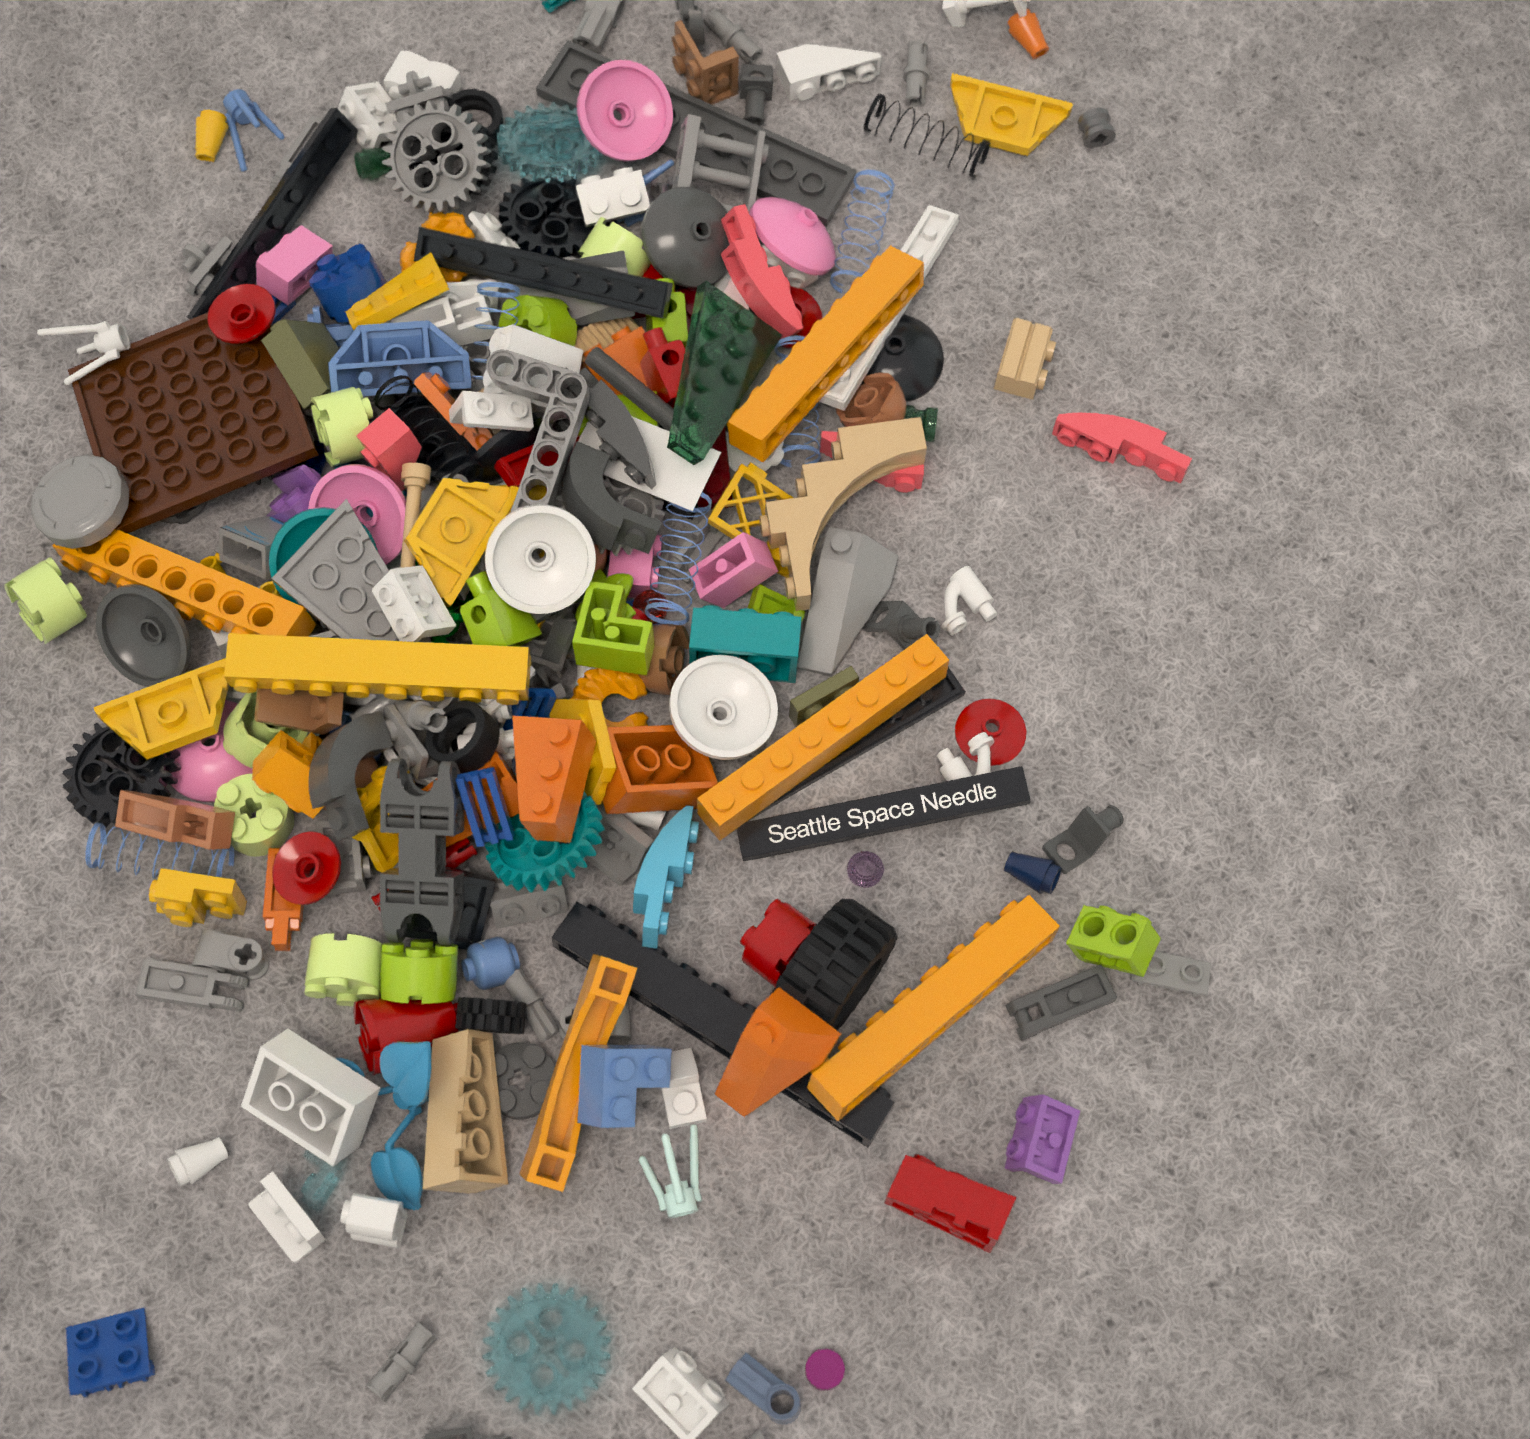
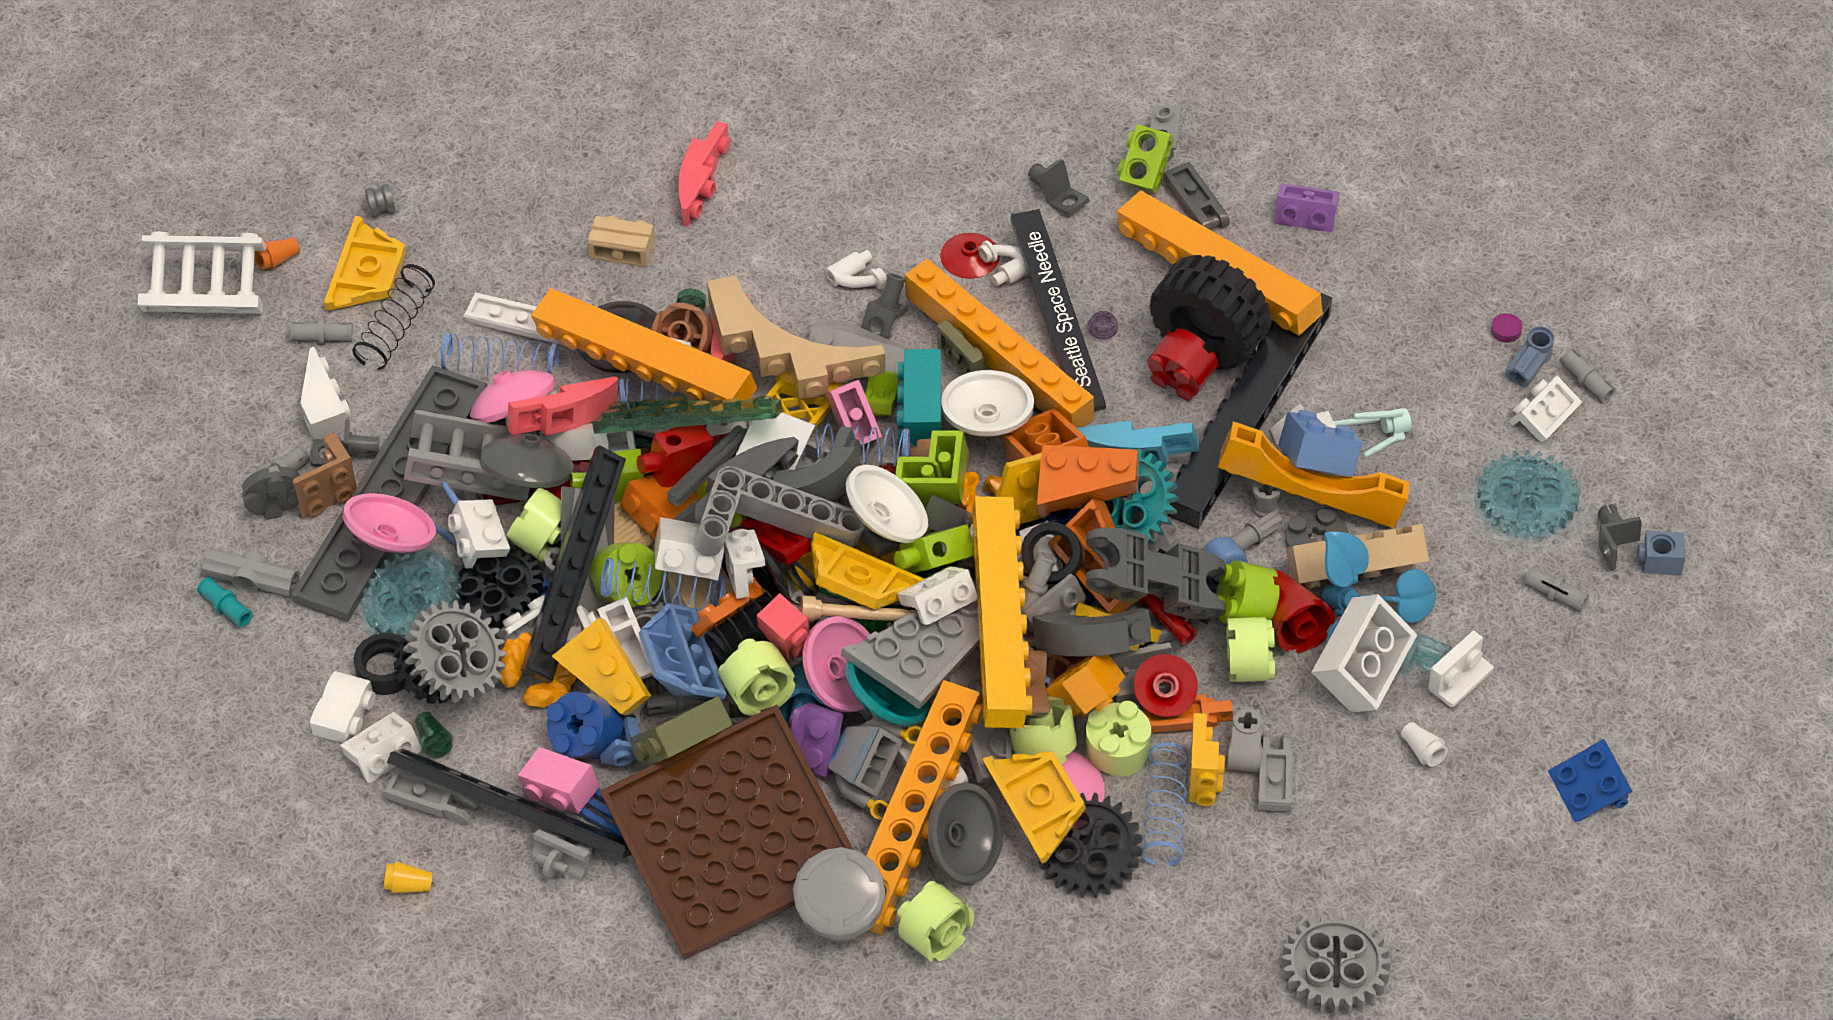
camera: 90 degrees left, 15 degrees down
(108, 340) = (656, 912): white plant -> none
(175, 820) = (1141, 775): nougat slope -> none
(241, 313) = (631, 773): red dish -> none
(243, 111) = (375, 854): medium blue plant -> none
(374, 1220) = (1454, 602): white brick -> none
(418, 96) = (374, 690): light grey hips -> none
(491, 1015) = (1274, 542): black tyre -> none
(492, 834) = (1113, 517): blue tile -> none
(774, 1052) = (1278, 338): orange wedge -> none
(950, 1202) = (1370, 247): red wedge -> none
(1034, 871) = (1091, 217): dark blue cone -> none

